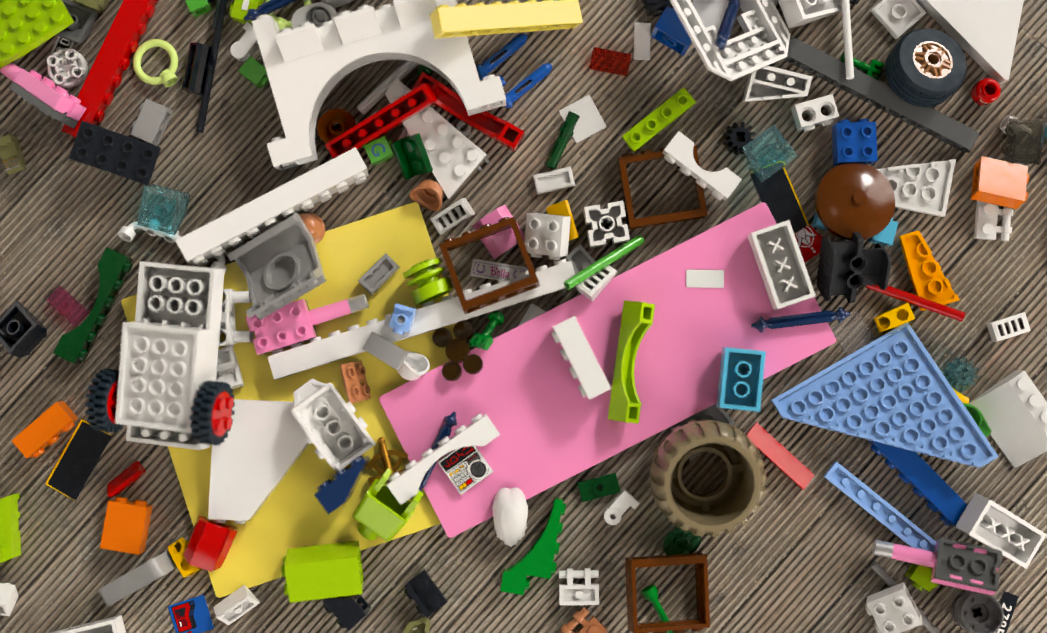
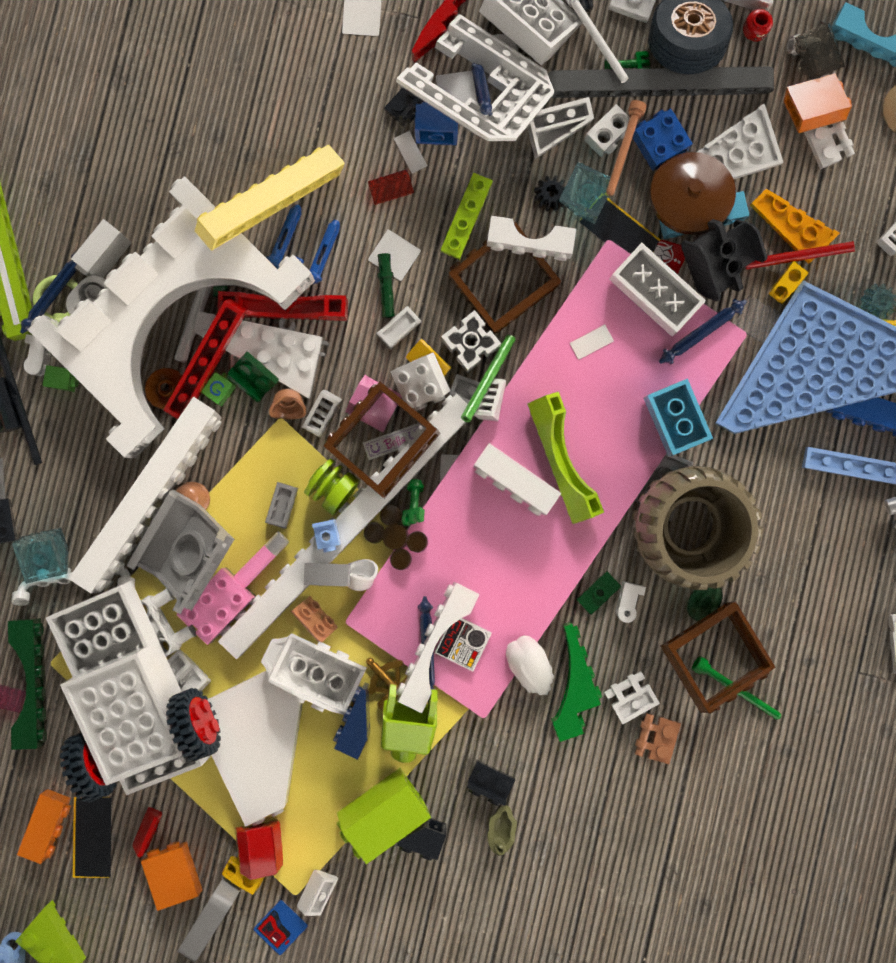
camera: 30 degrees left, 0 degrees up
(780, 456) = (753, 471): slope -> none
(845, 109) = (636, 111): none -> nougat piece

